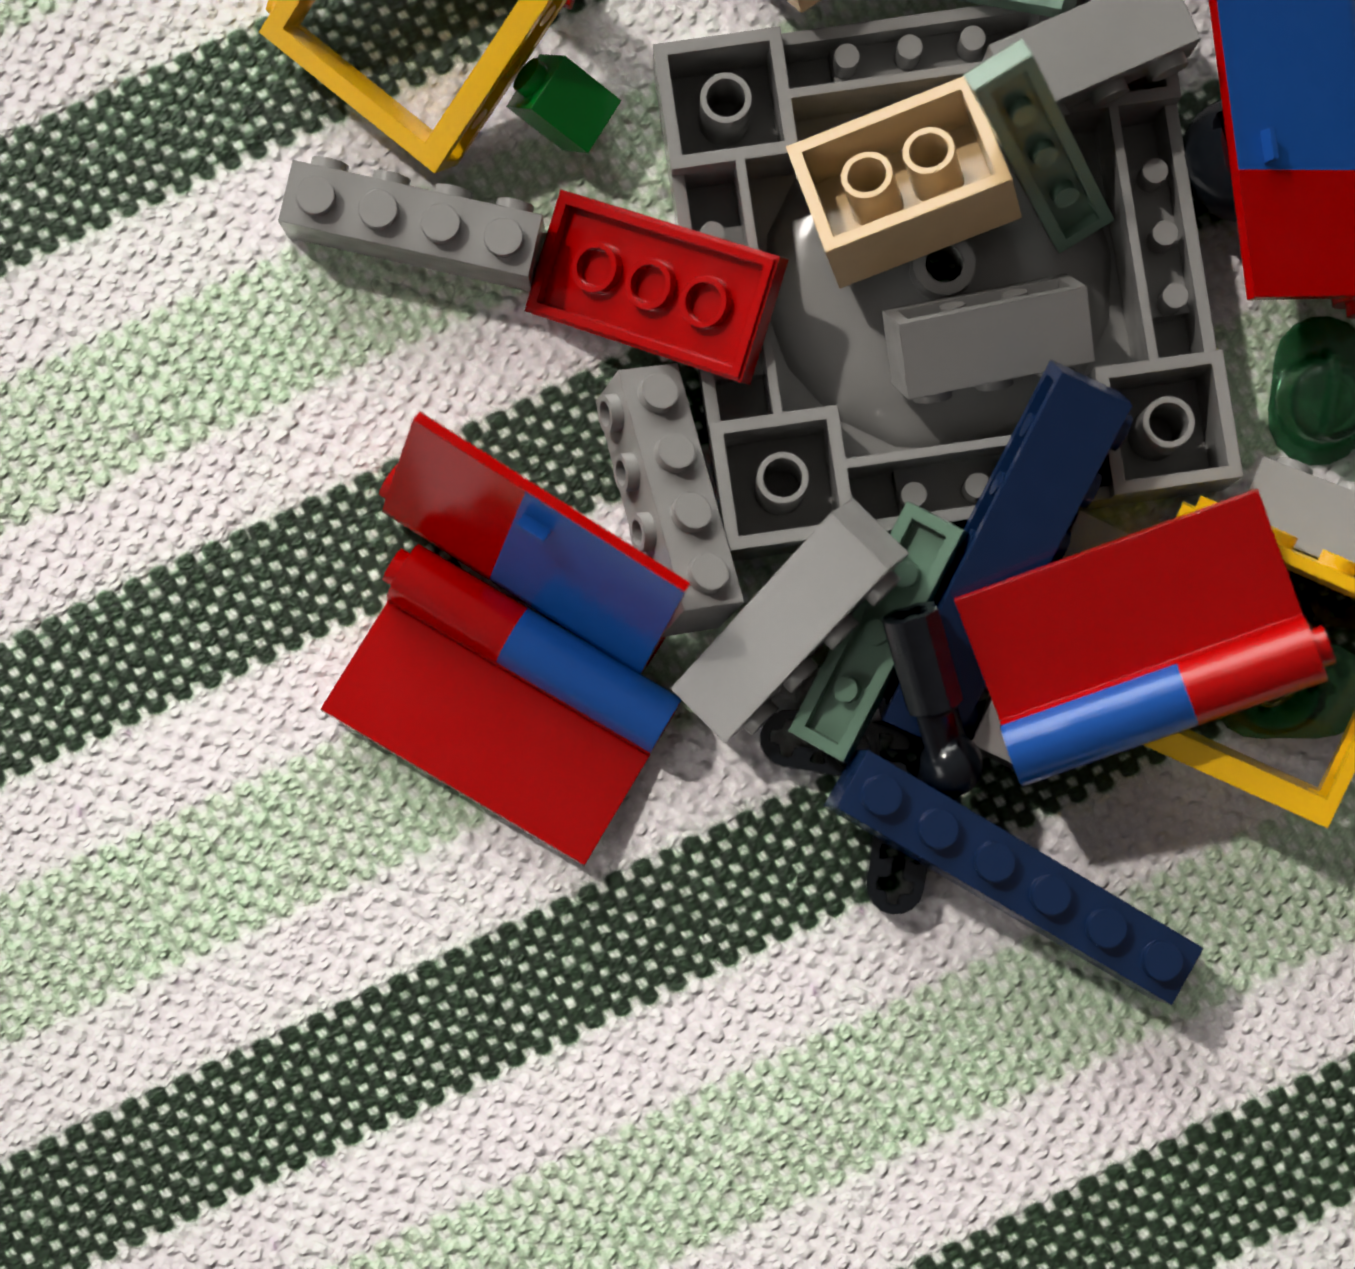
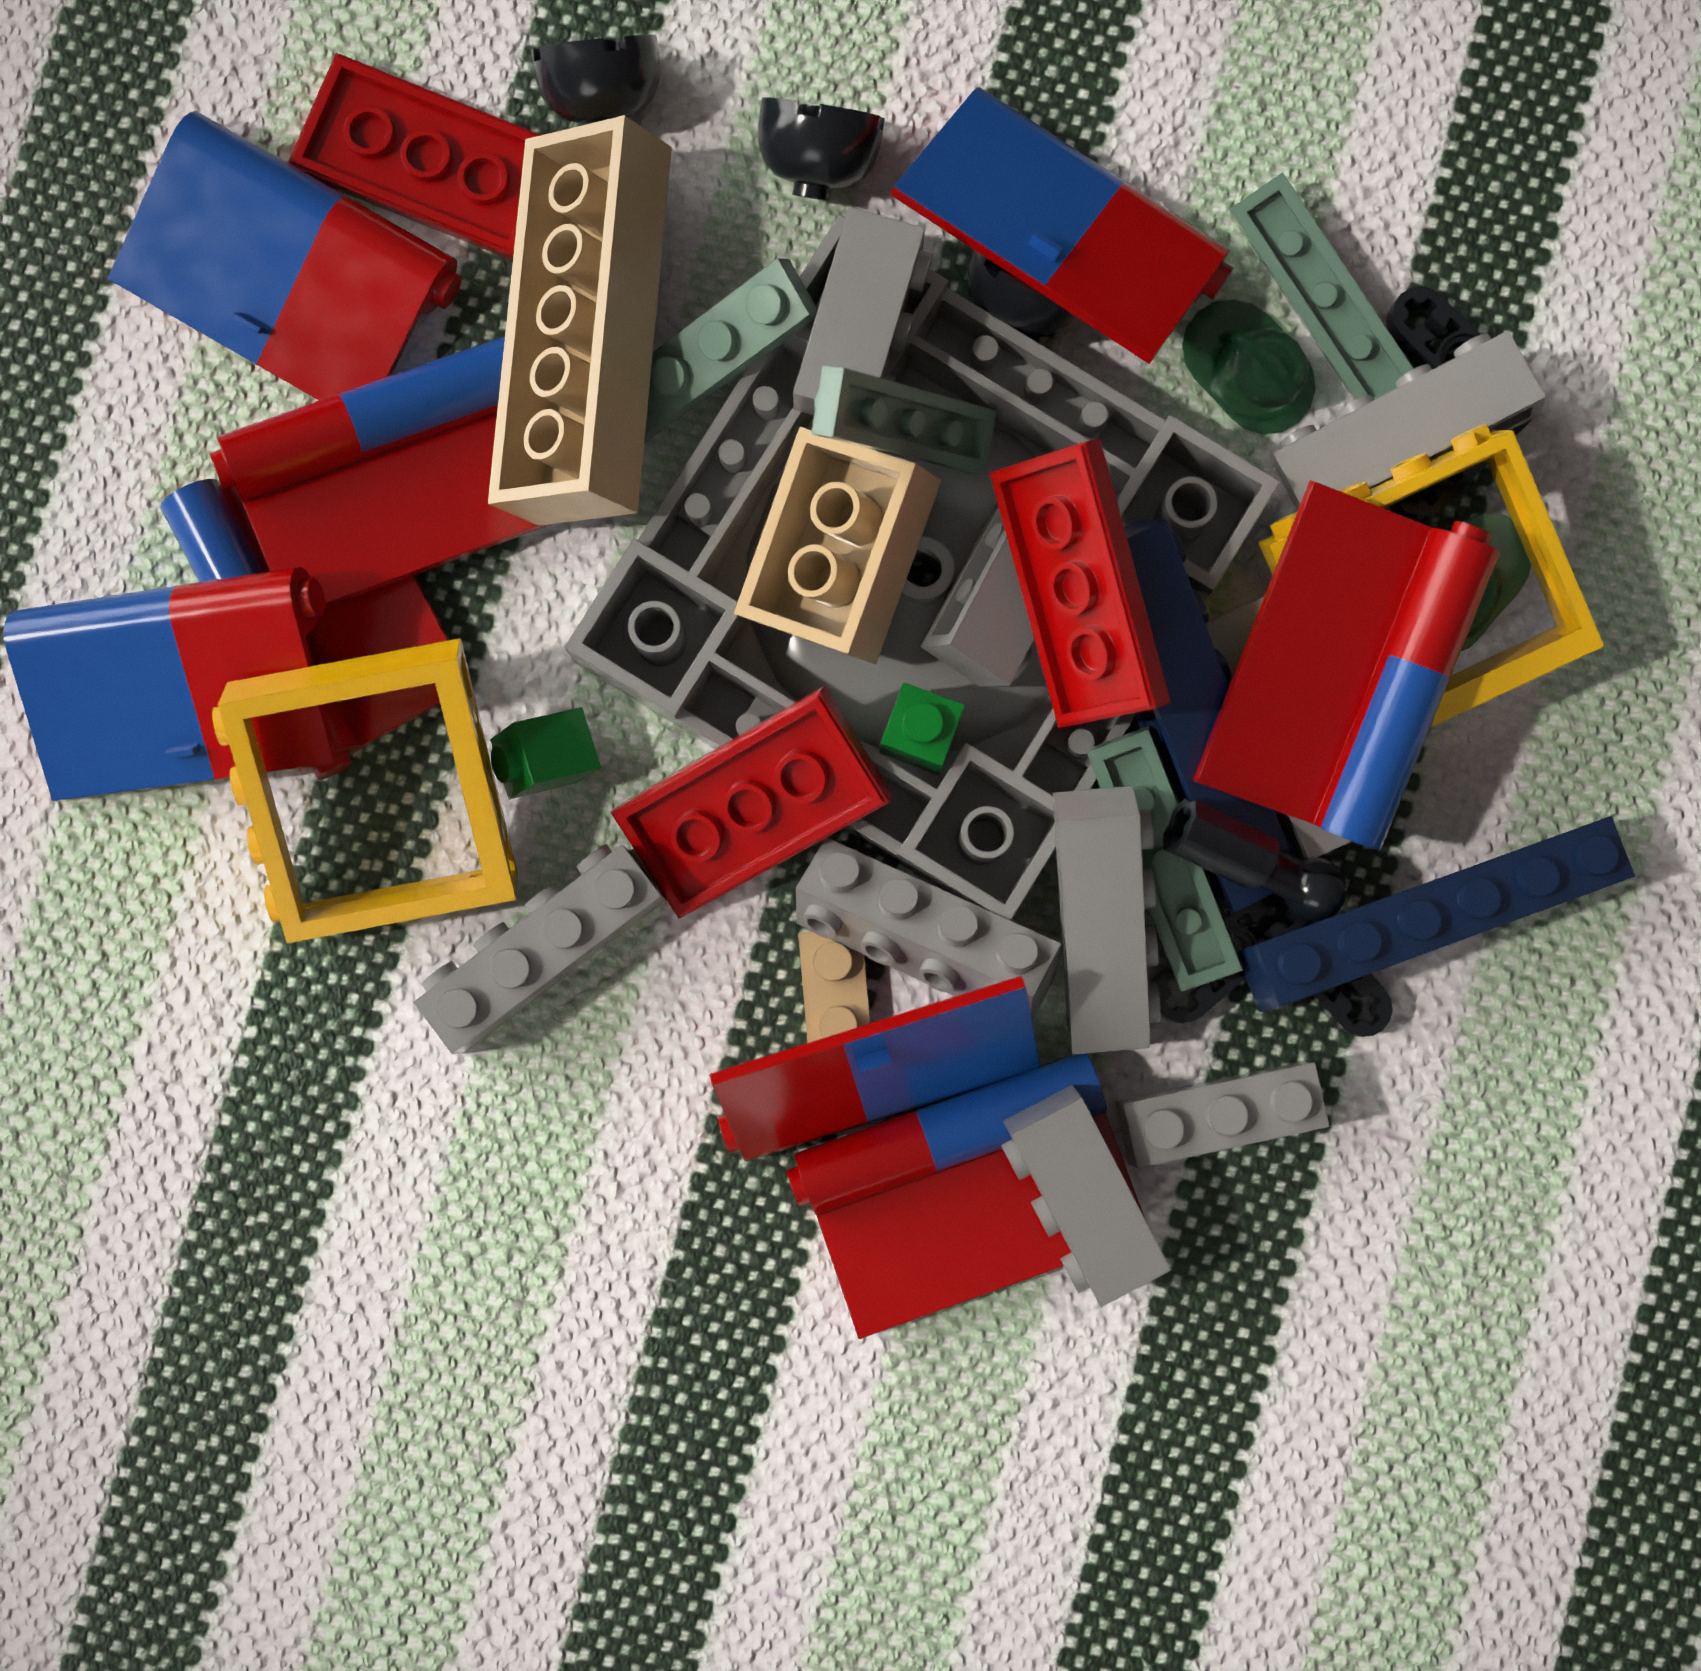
camera: 50 degrees left, 0 degrees up
(567, 783) = (1083, 1197): none -> light grey brick
(575, 464) = (832, 986): none -> tan plate
(721, 841) = (1222, 1114): none -> light grey brick
(820, 364) = (921, 728): none -> green brick
(1026, 380) = (1080, 585): none -> red tile

